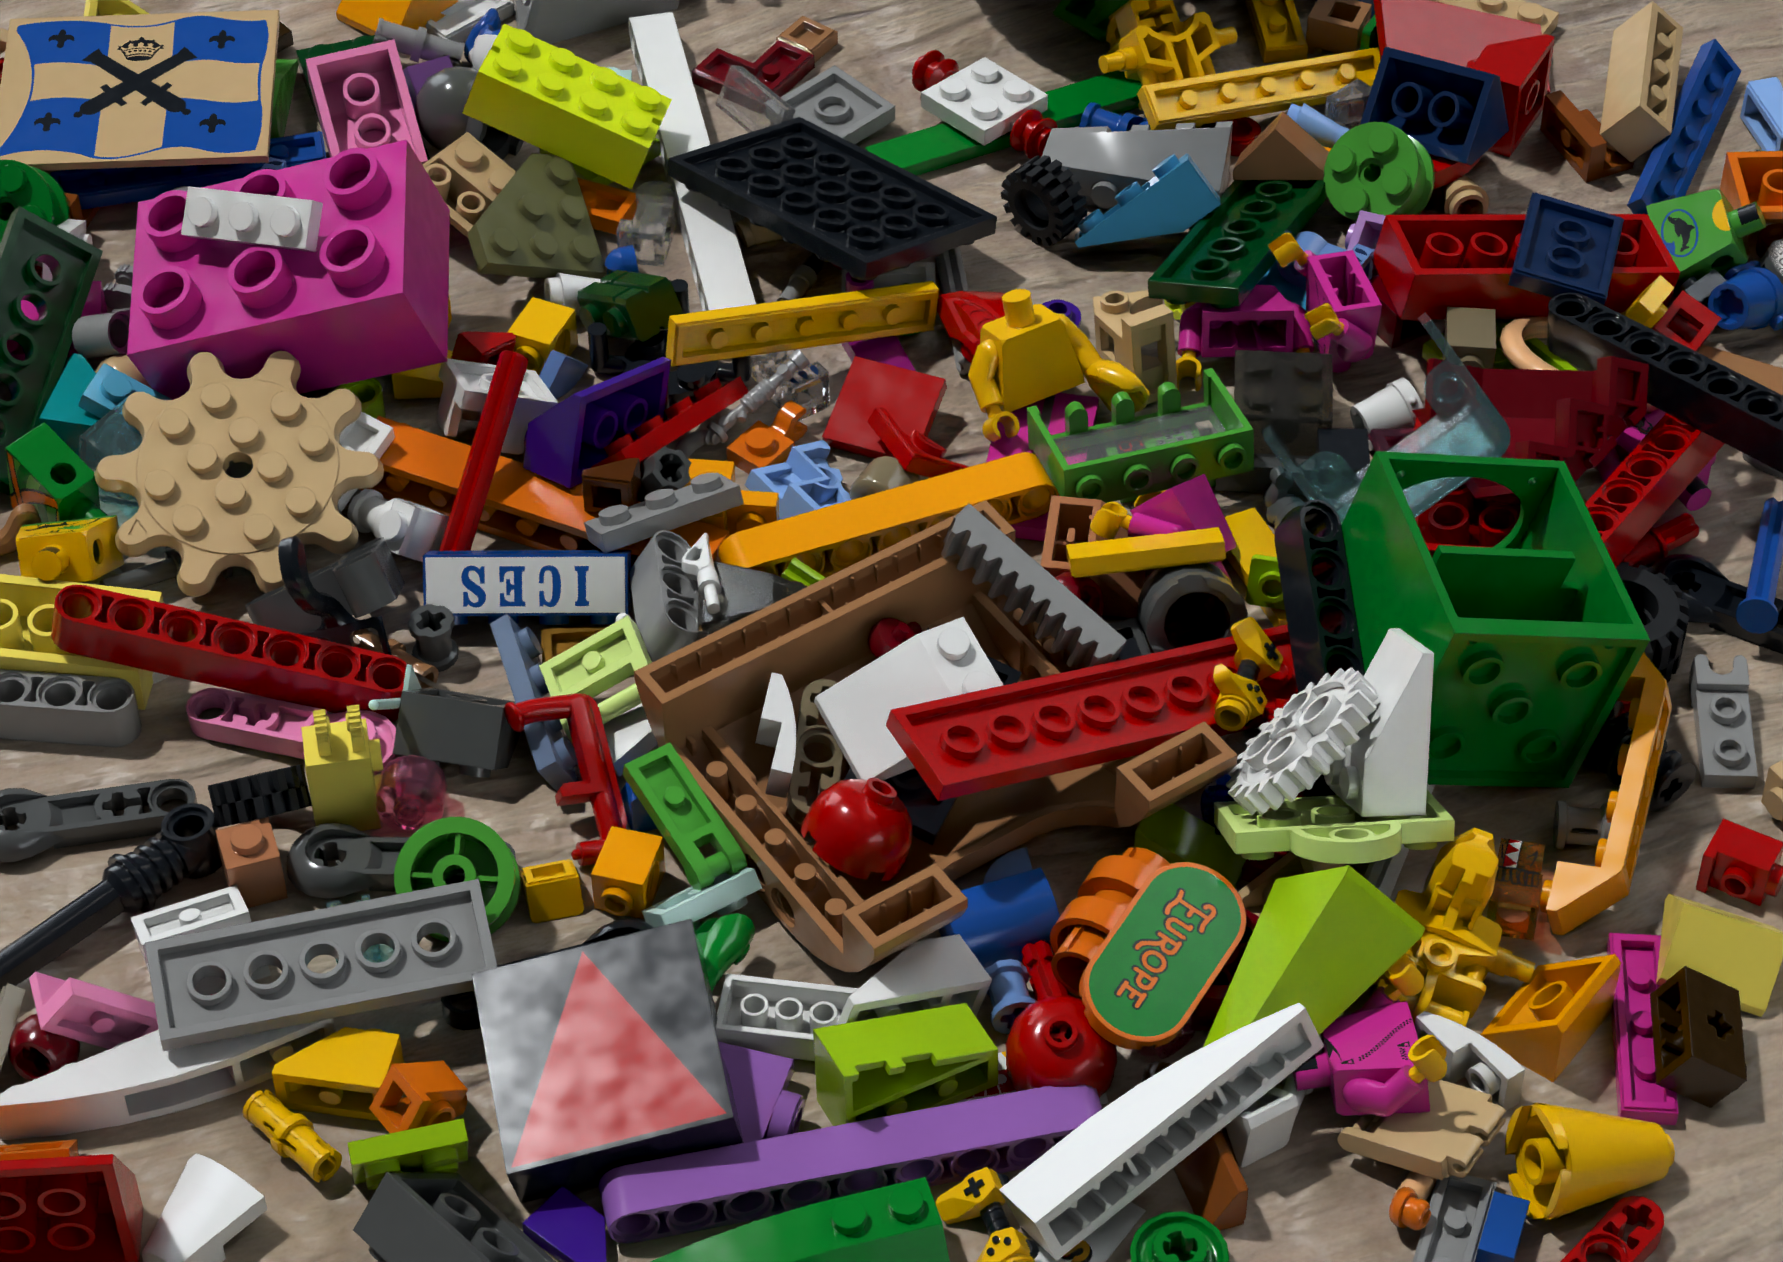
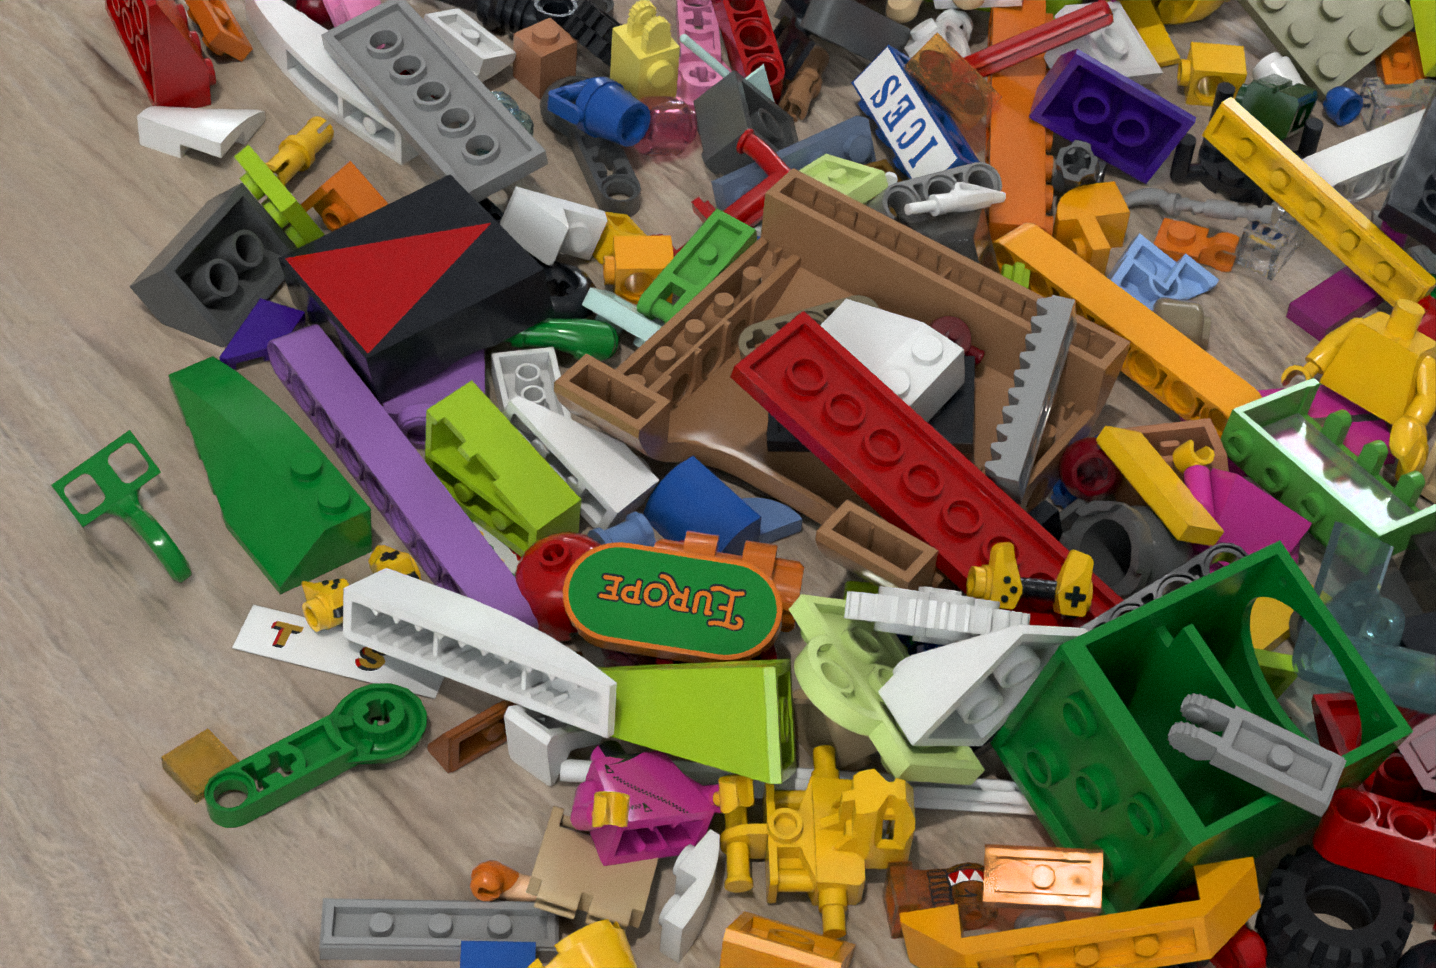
camera: 65 degrees right, 0 degrees up
(338, 1072) = (371, 153): yellow slope -> none
(397, 818) = (602, 110): none -> blue piece
(432, 632) = (835, 89): dark grey bush -> none
(465, 847) = (581, 157): bright green wheel -> none
(482, 346) = (1165, 40): red slope -> none
(501, 524) = (952, 81): none -> clear orange tile
(551, 920) = (552, 225): none -> white slope
(561, 373) = (1185, 94): medium blue tile -> none
(612, 485) = (1036, 135): reddish brown slope -> none
(663, 510) = (1028, 172): light grey plate -> none
(681, 418) = (1127, 155): red plate -> none
(778, 730) = (818, 284): white slope -> none
(860, 828) = (705, 378): red cylinder -> none
(905, 394) = (1273, 306): red tile -> none
(913, 452) = (1225, 329): red tile -> none
(1550, 792) = (1043, 878): none -> clear orange tile
(1584, 555) = (1258, 752): none -> light grey hinge

